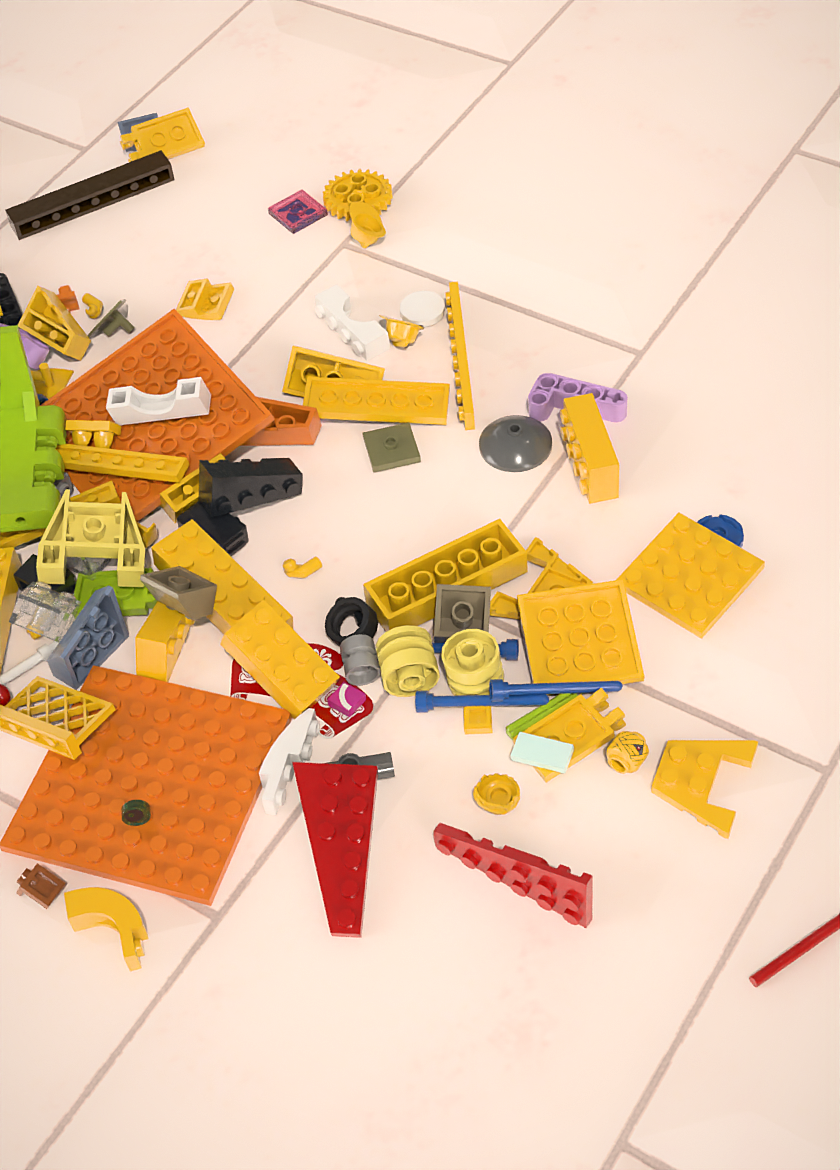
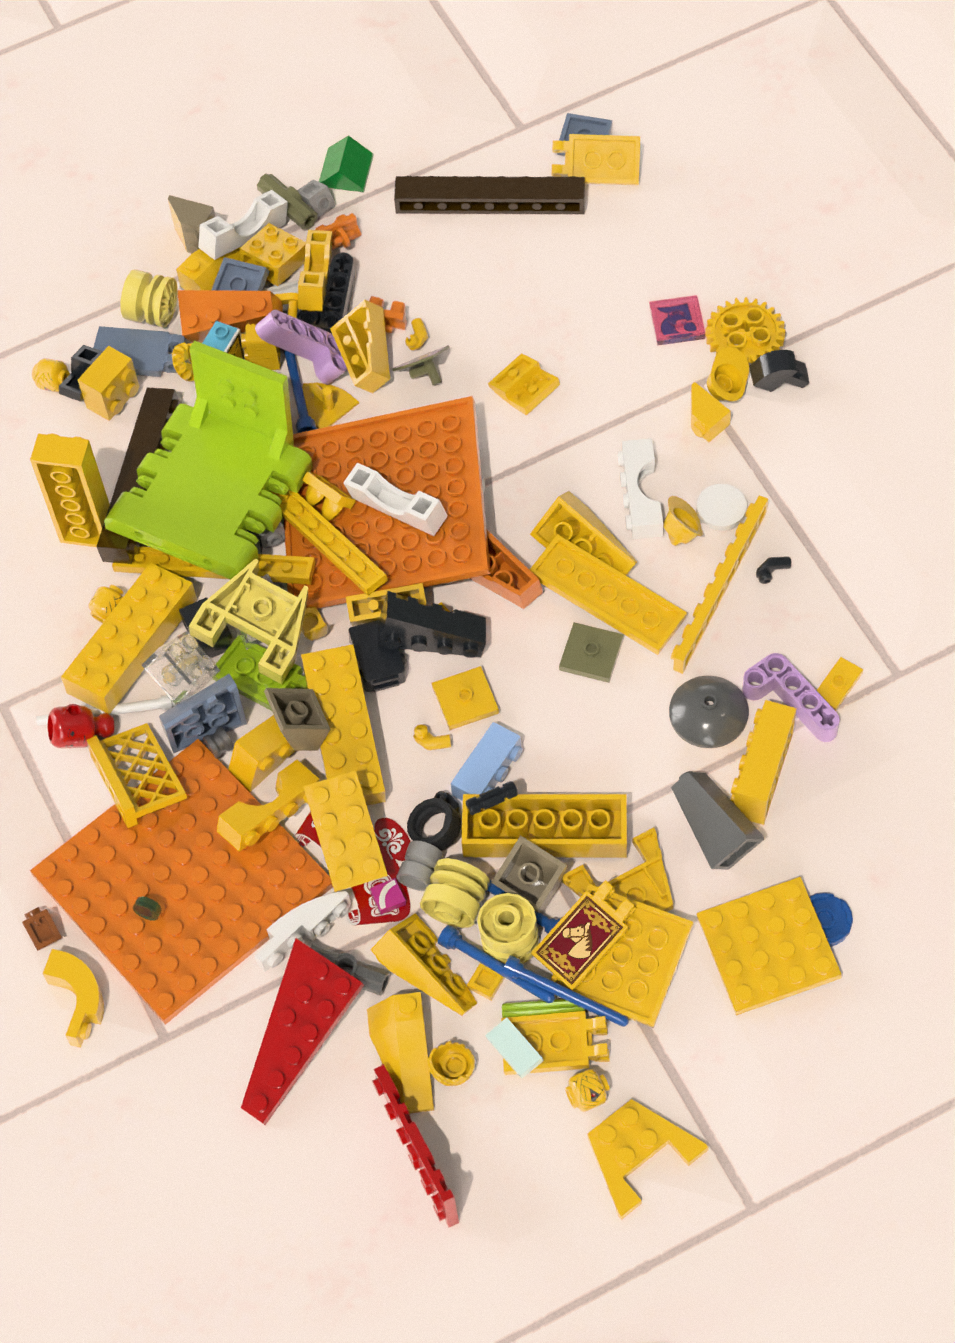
camera: 30 degrees right, 10 degrees up
(114, 657) = (218, 742): none -> flat silver wheel
(186, 698) = (246, 823): none -> yellow arch
(309, 526) = (465, 698): none -> yellow plate
(363, 557) = (487, 762): none -> light blue brick
(366, 254) = (707, 414): none -> yellow slope
(390, 572) = (491, 797): none -> black axle
(397, 729) = (413, 956): none -> yellow wedge
(400, 202) = (776, 368): none -> black brick
(436, 796) = (401, 1043): none -> yellow wedge
(488, 332) = (771, 564): none -> black arm
(541, 636) = (584, 936): none -> tile
(583, 506) = (715, 820): none -> dark grey slope
(602, 372) = (839, 682): none -> yellow plate

